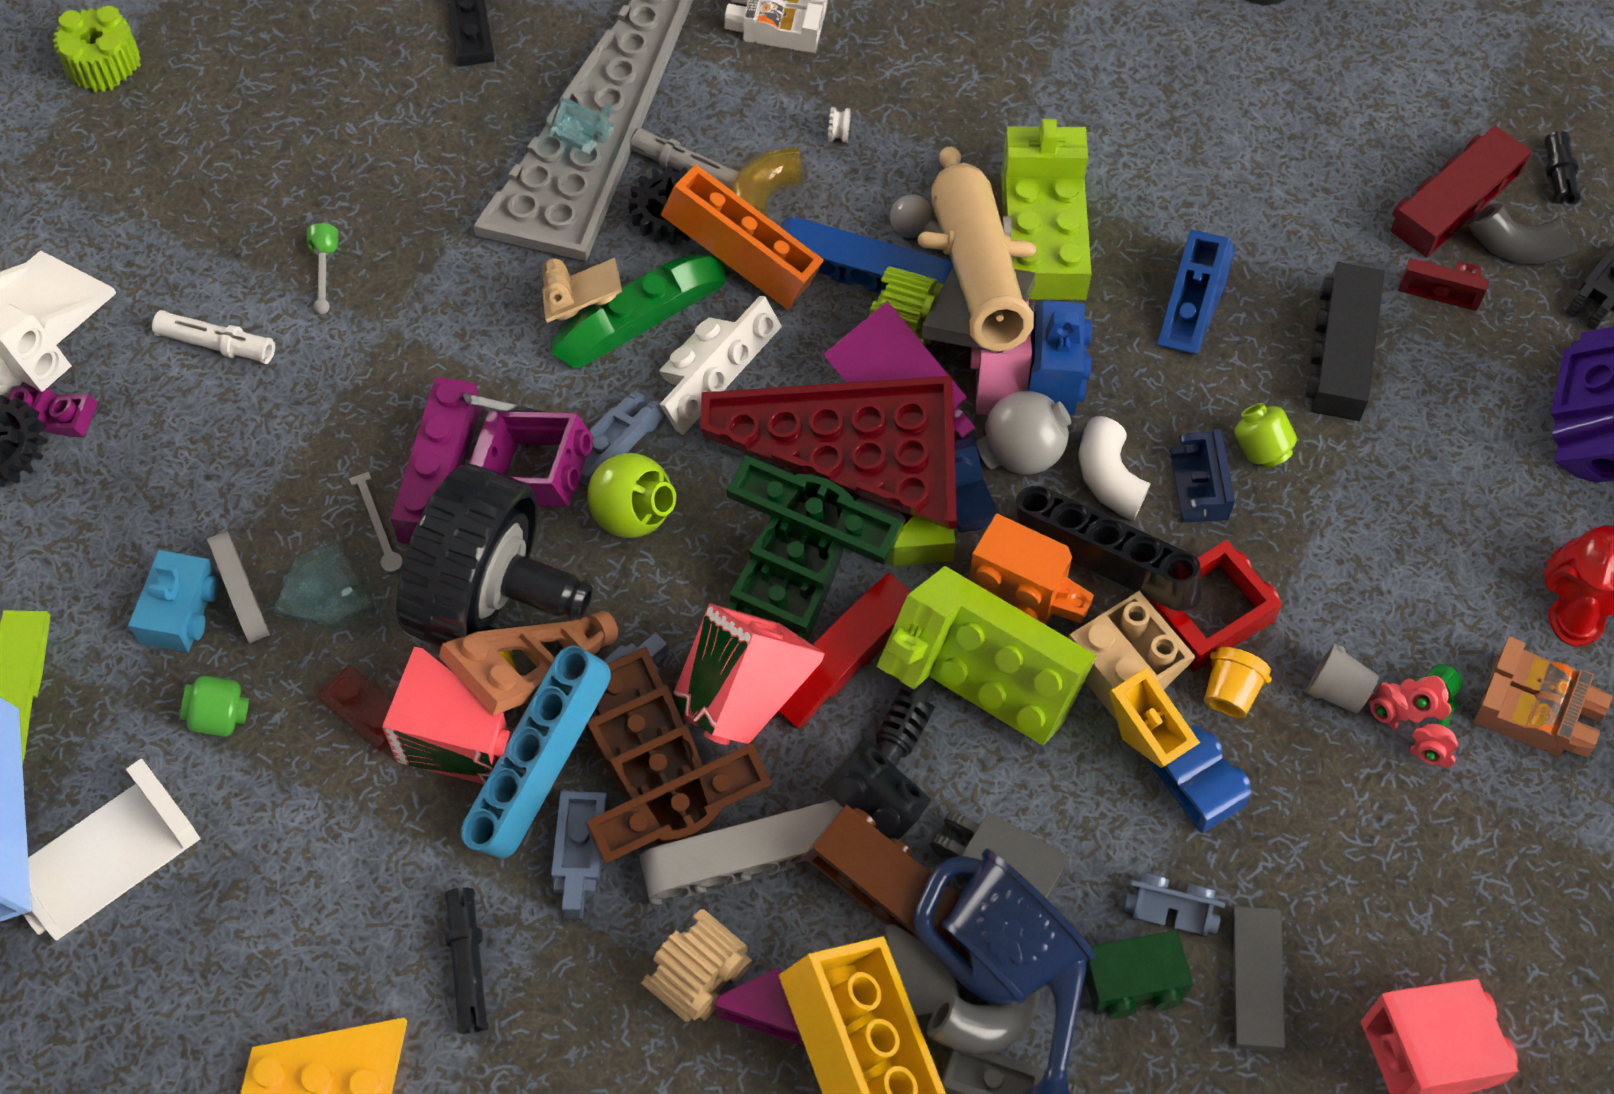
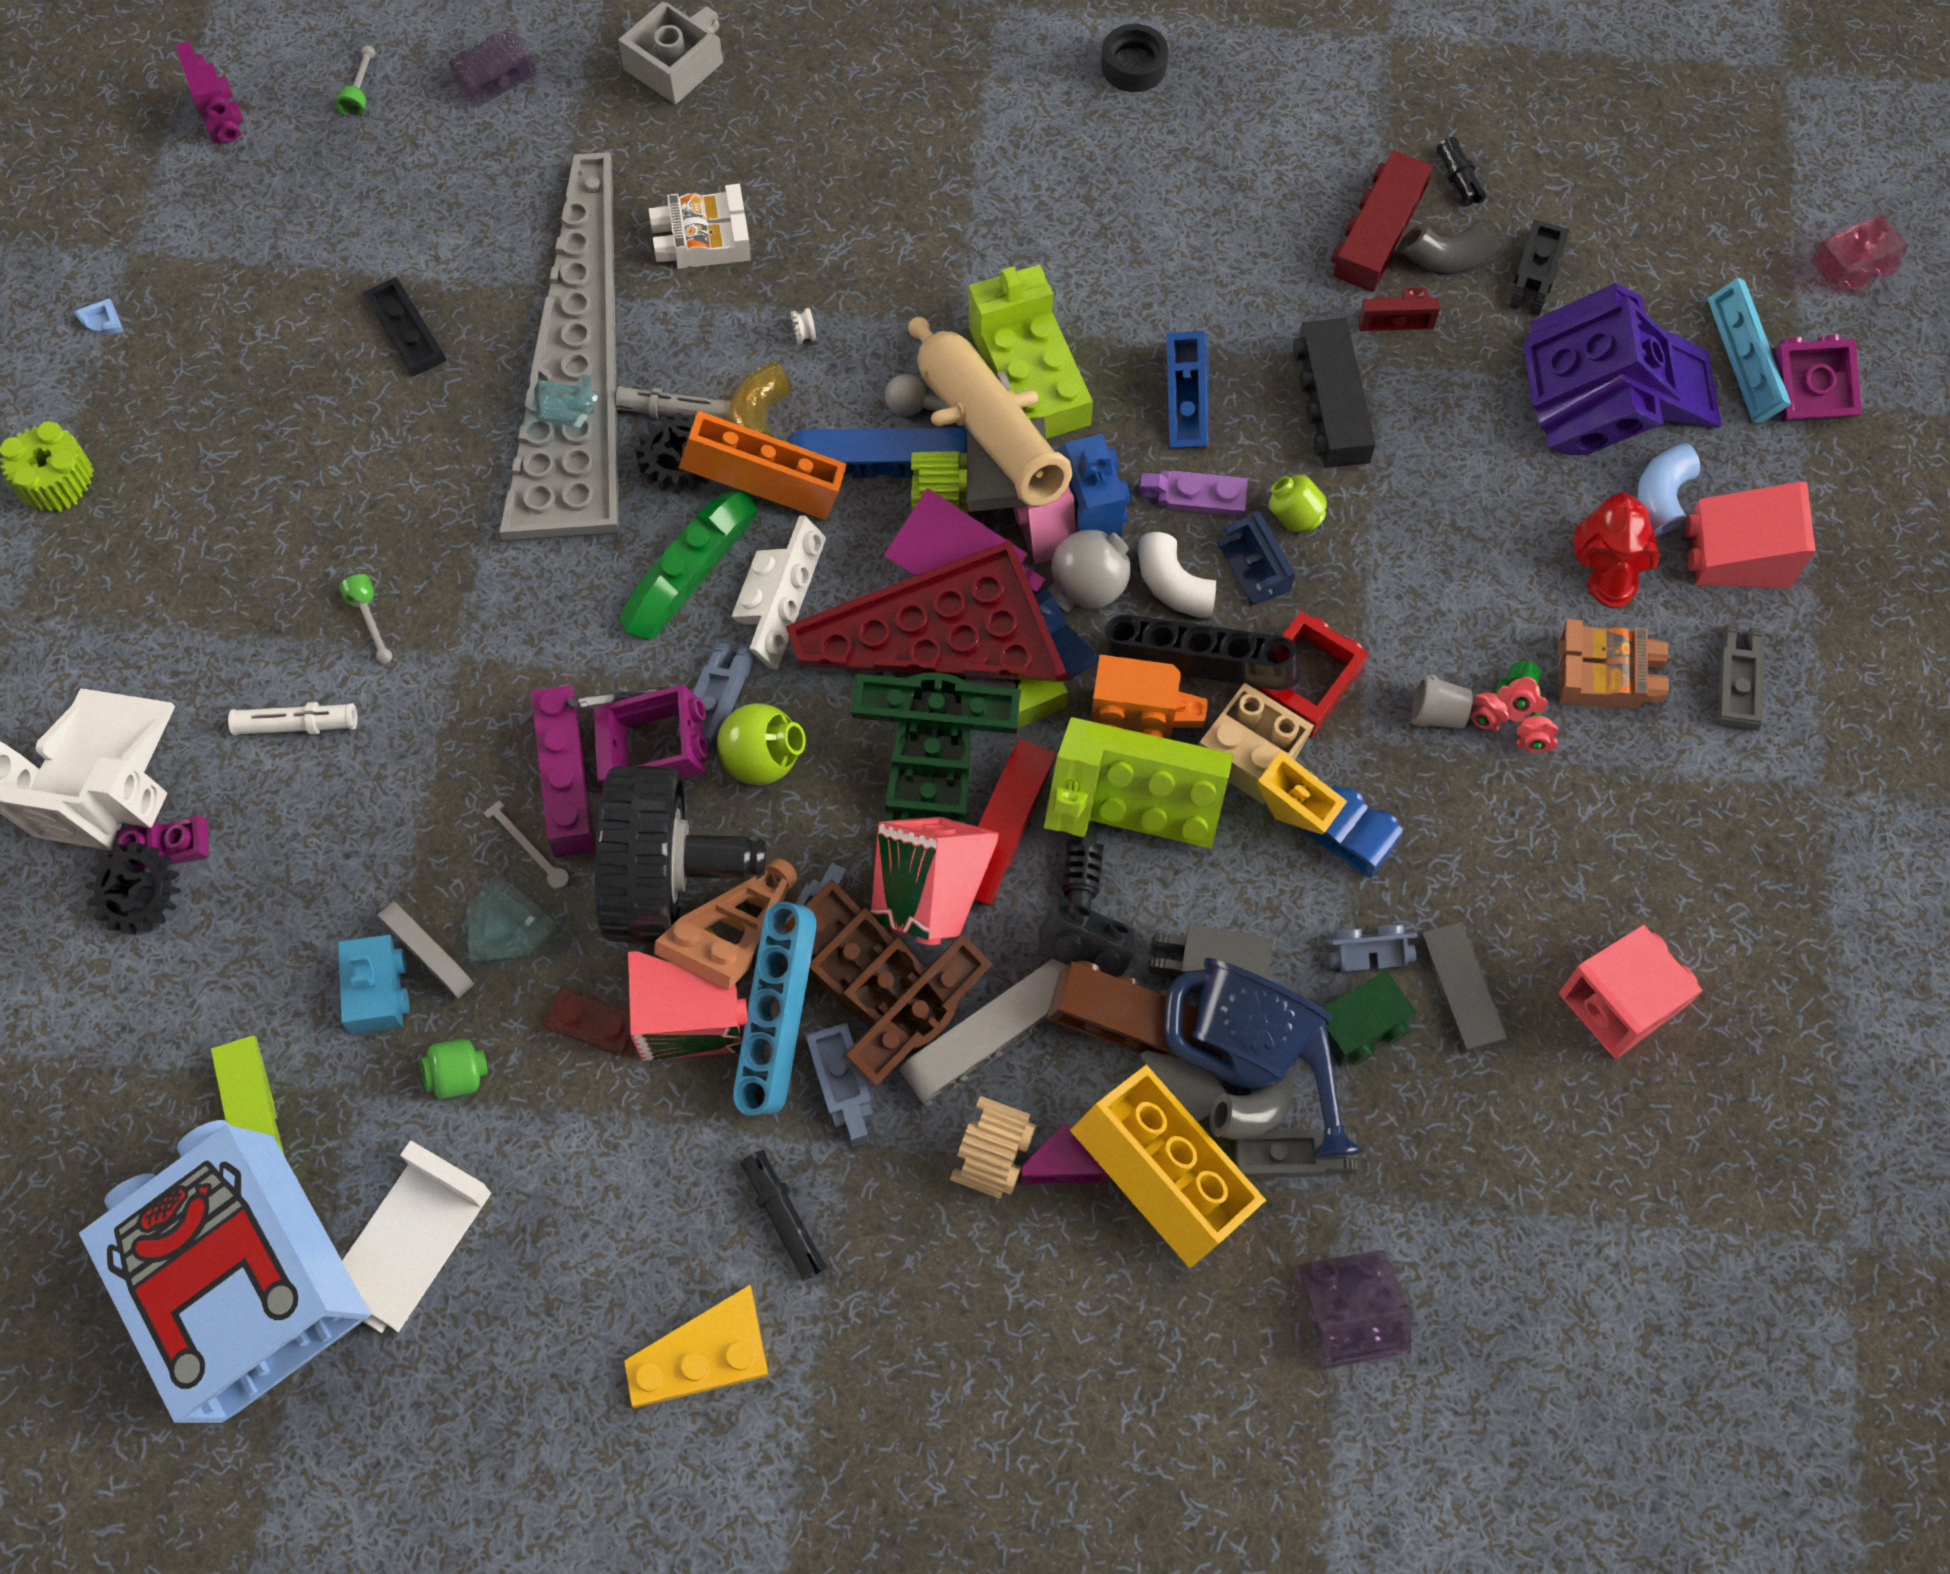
camera: 20 degrees left, 5 degrees up
(567, 294) = (628, 564): tan hinge -> none
(1167, 394) = (1196, 492): none -> medium lavender hinge
(1235, 681) = (1352, 735): yellow piece -> none

